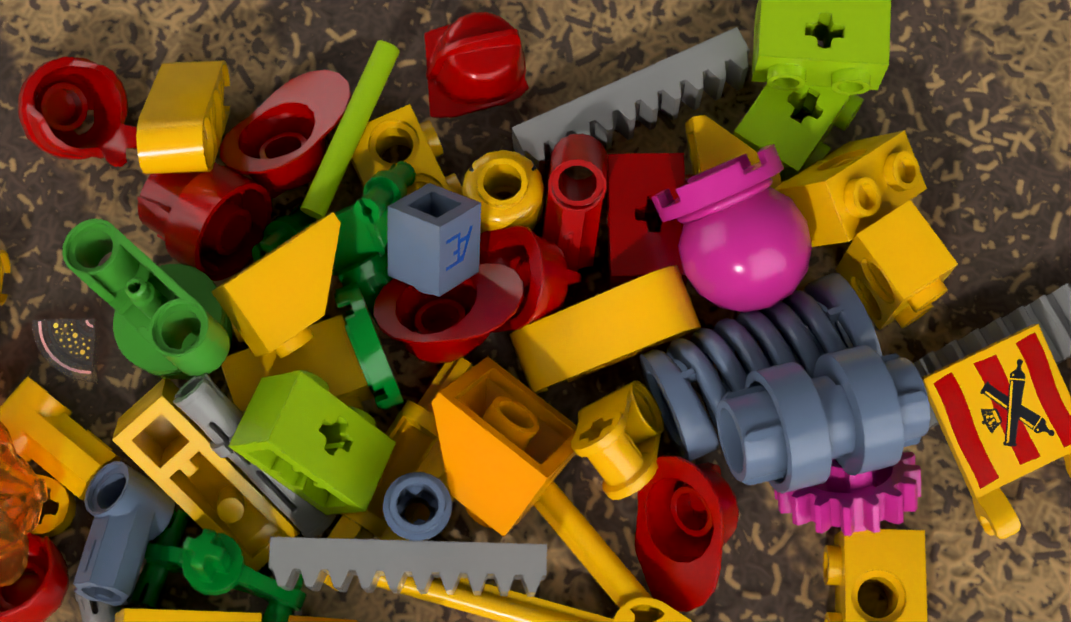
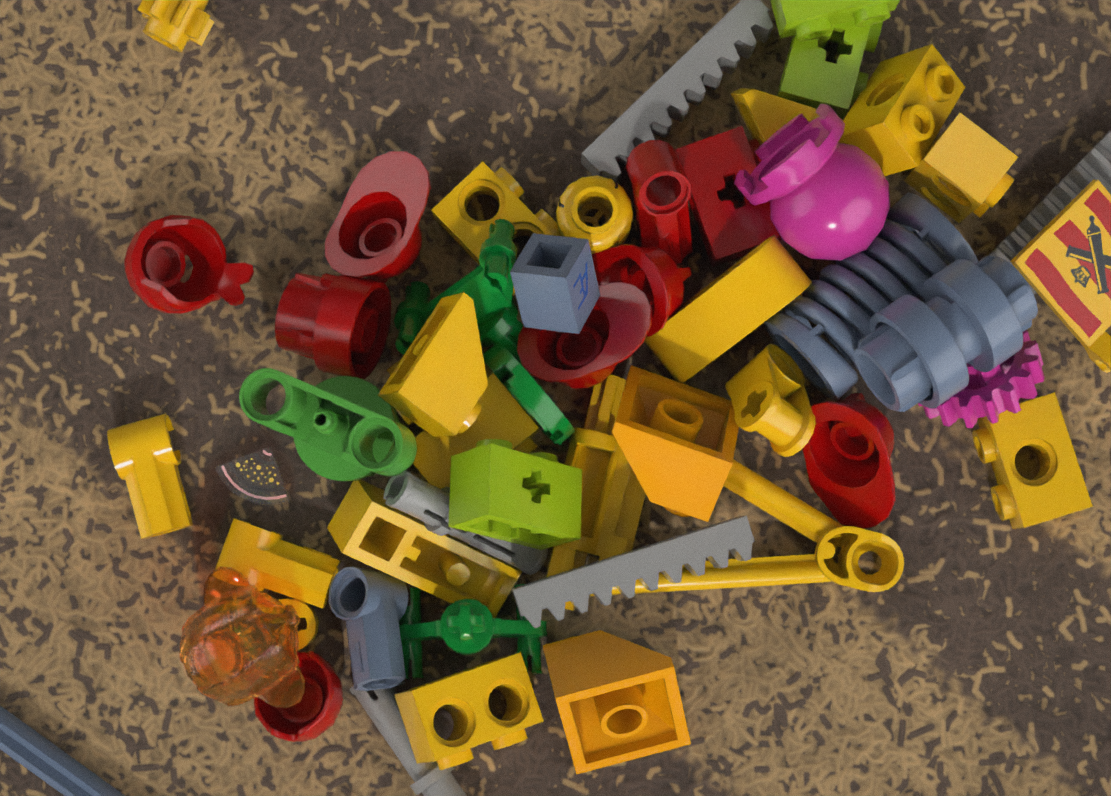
camera: 20 degrees left, 10 degrees up
(183, 118) = (287, 242): yellow beam -> none
(350, 130) = (440, 204): lime bar -> none
(417, 488) = (642, 517): sand blue cone -> none
(473, 65) = (518, 99): red piece -> none

